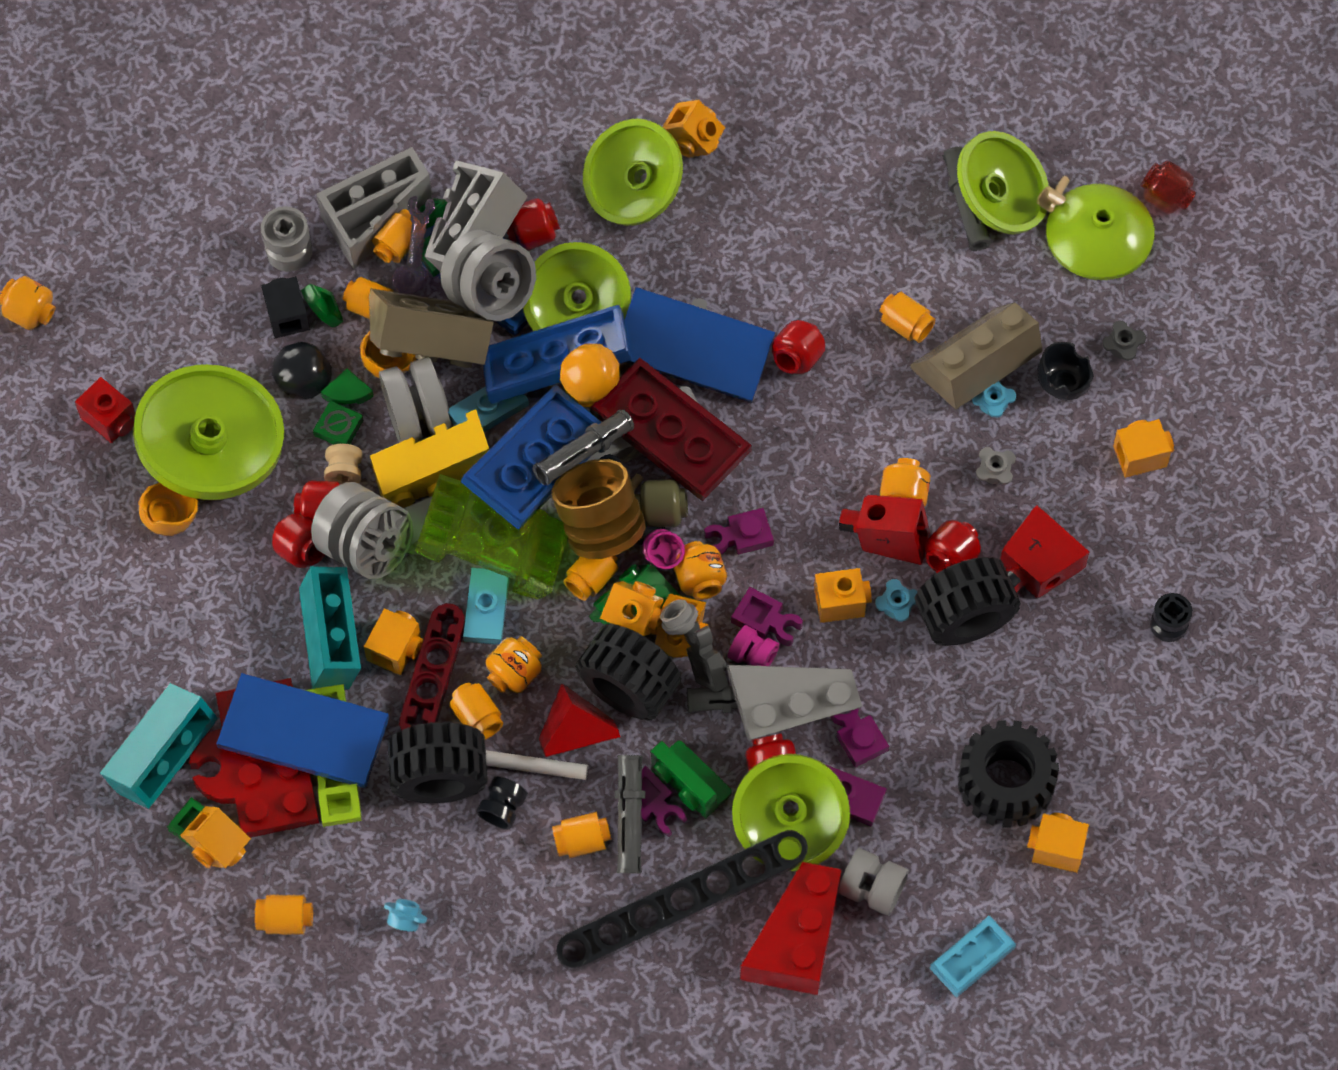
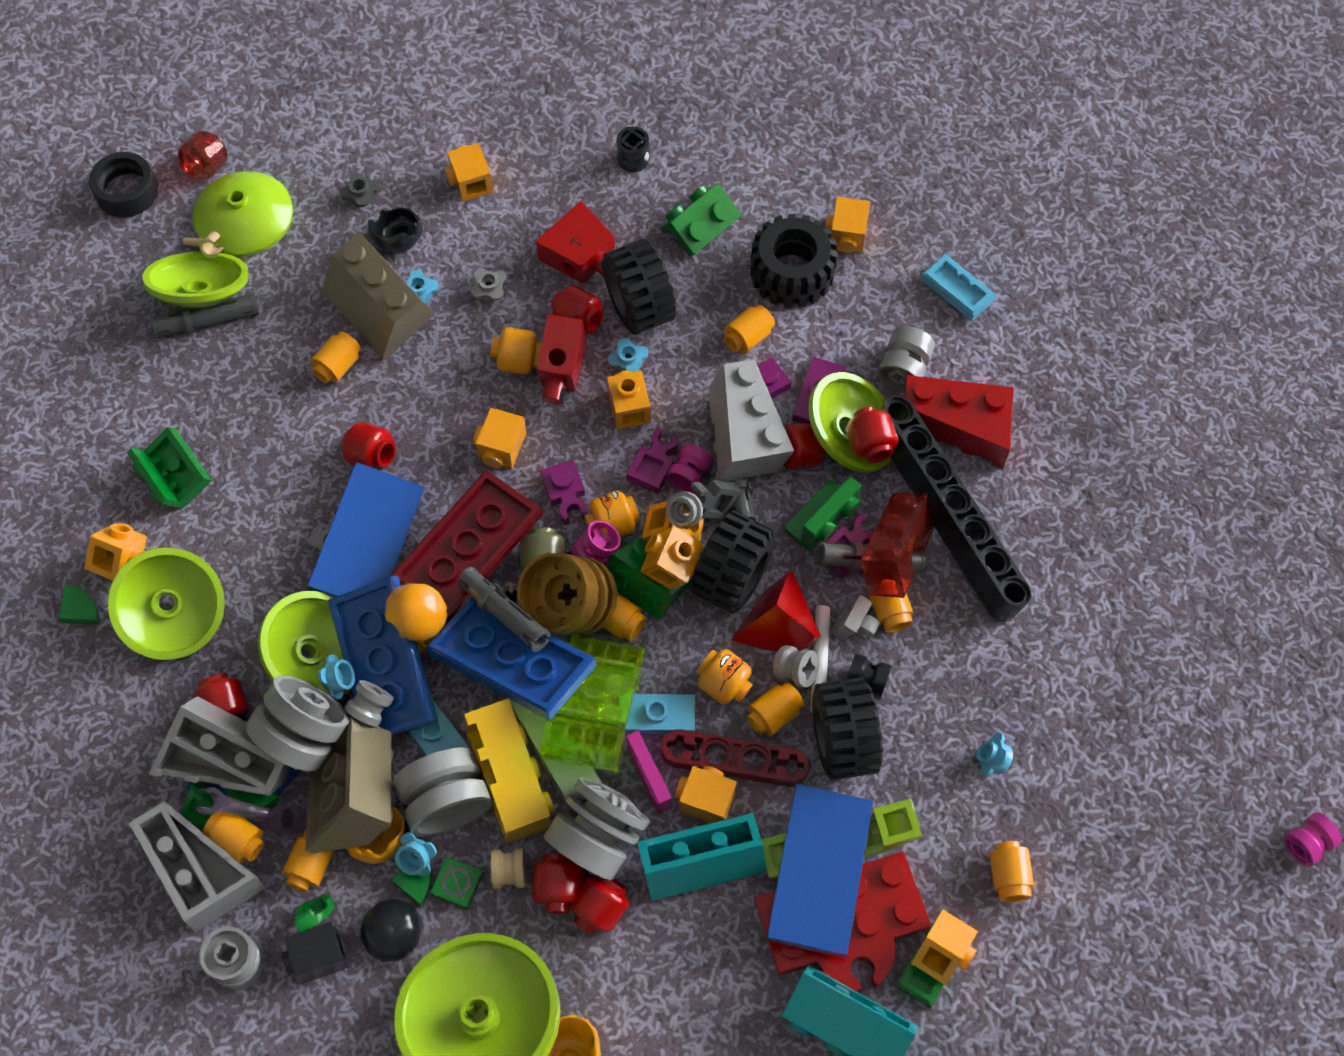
camera: 95 degrees left, 0 degrees up
(360, 382) = (407, 859): none -> medium azure plate
(423, 589) = (648, 772): none -> dark pink tile
(507, 338) = (368, 703): none -> light grey wheel
(518, 732) = (796, 666): none -> light grey wheel
(537, 321) = (336, 676): none -> medium azure plate
(566, 797) = (854, 619): none -> light grey tile
(613, 814) = (888, 557): none -> clear red arch
(648, 104) = (78, 607): none -> green tile
(761, 816) = (872, 435): none -> red head
(783, 171) = (170, 469): none -> green bracket
(799, 469) = (500, 438): none -> light orange brick
(923, 722) = (748, 329): none -> light orange brick
(1075, 685) = (702, 218): none -> green bracket
(1138, 93) = (114, 166): none -> black tyre

